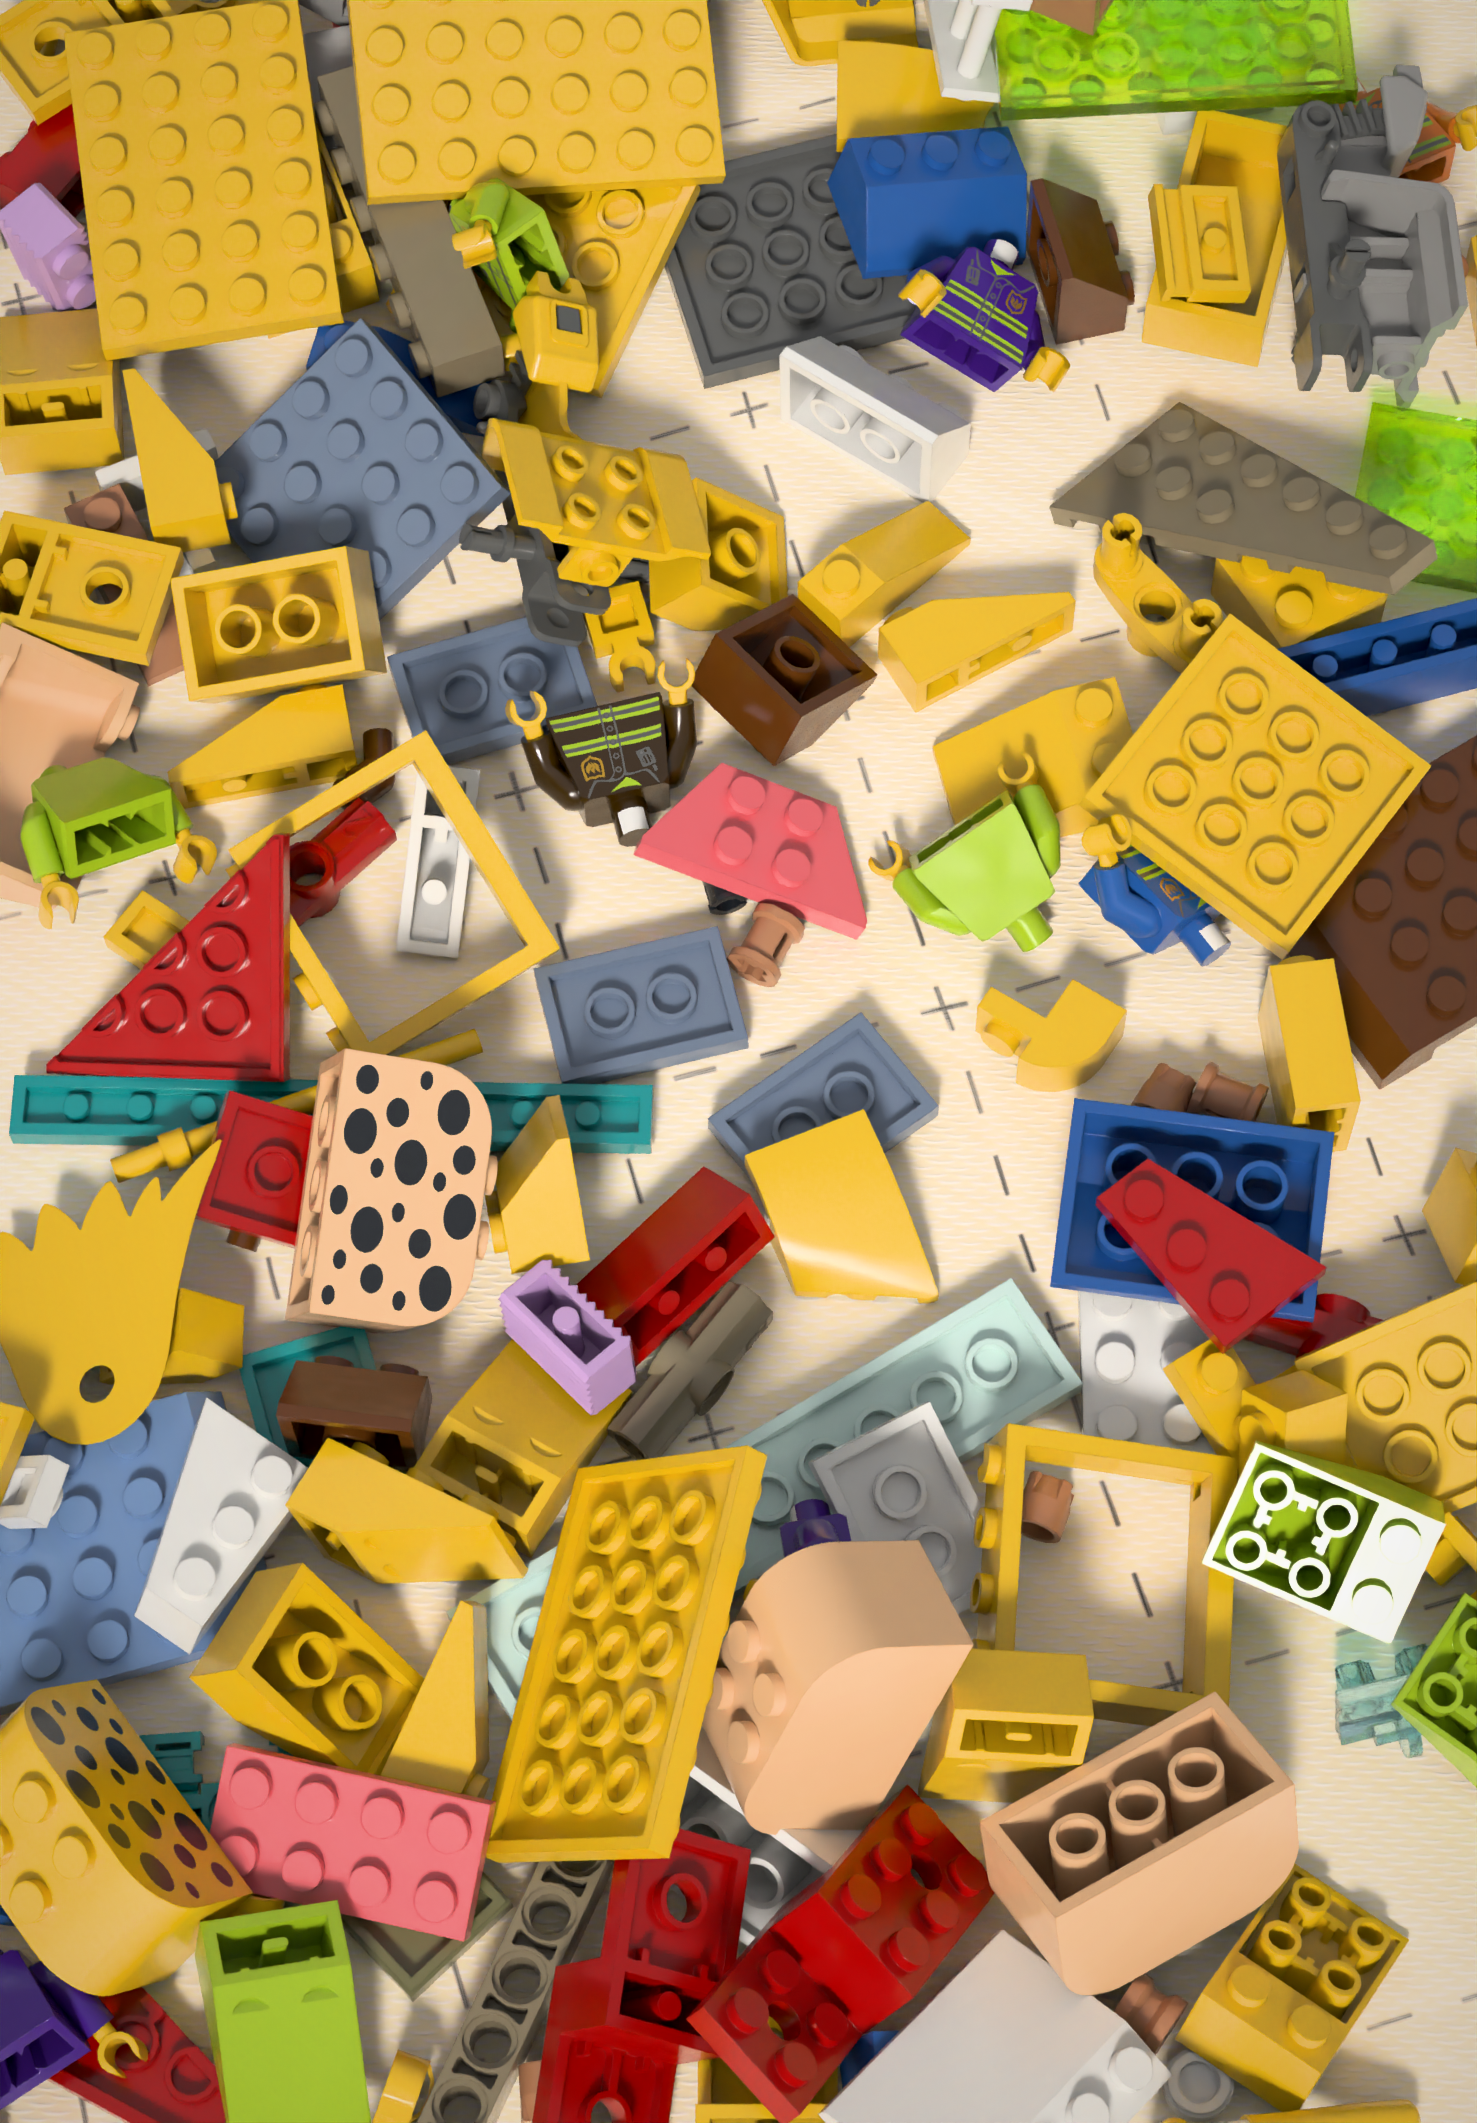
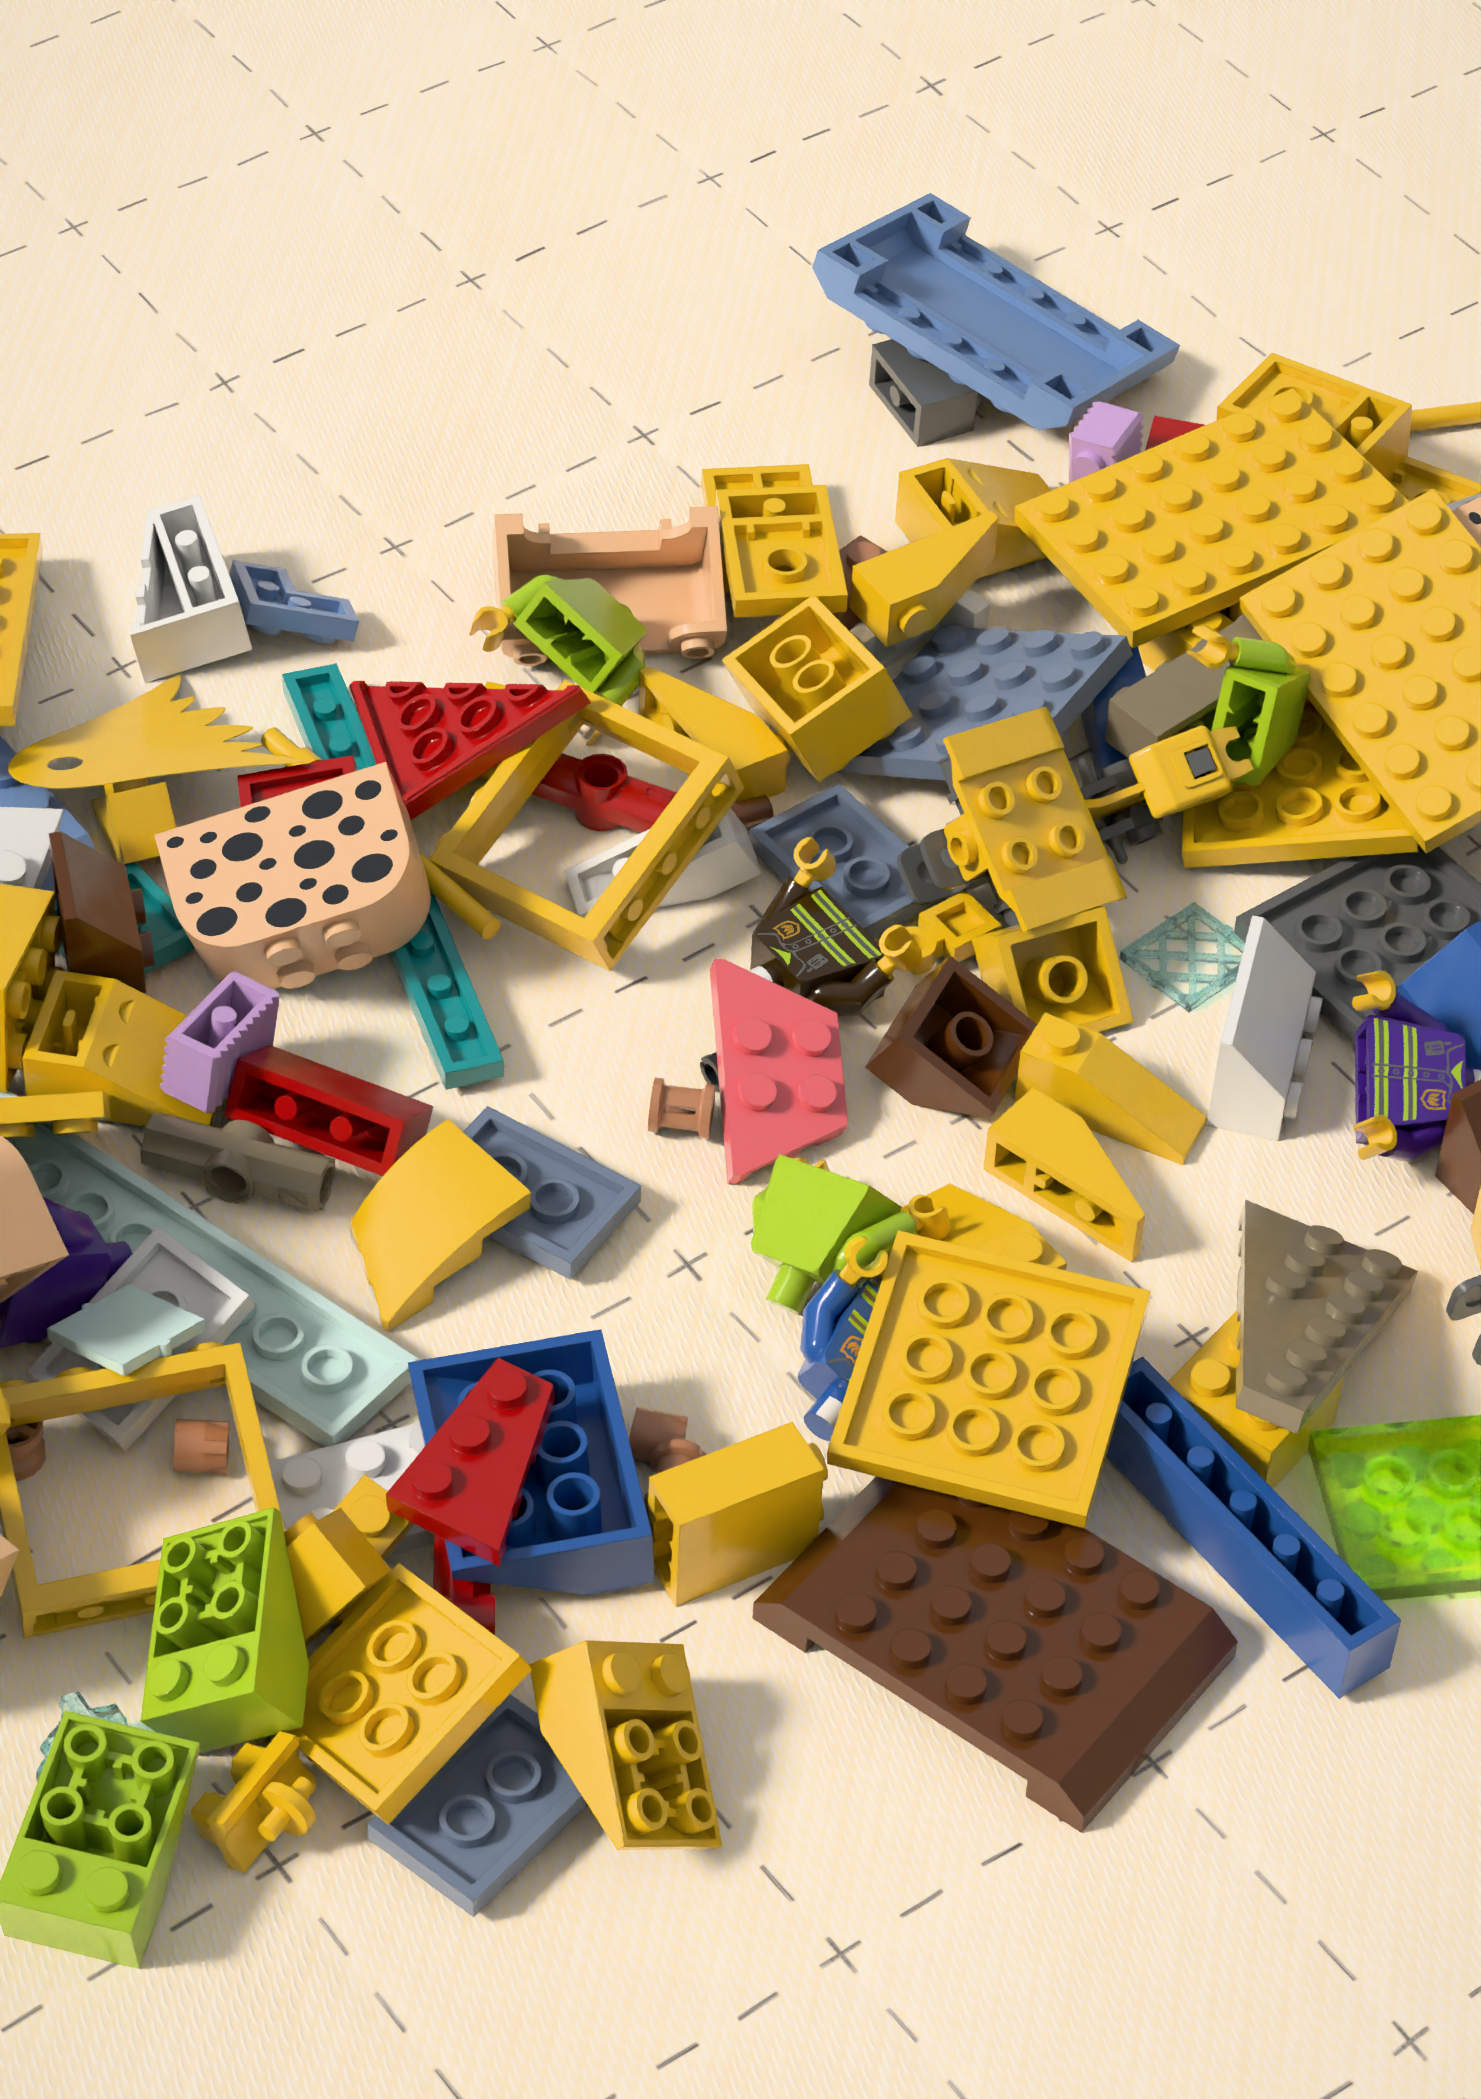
camera: 65 degrees right, 20 degrees down
(537, 1195) = (353, 991): yellow slope -> none
(641, 1008) = (580, 1040): sand blue plate -> none
(699, 398) = (1166, 930): none -> clear light blue window
(952, 1516) = (126, 1329): none -> light aqua piece
(1057, 1049) = (680, 1344): yellow brick -> none
(1141, 588) = (1181, 1273): yellow connector -> none

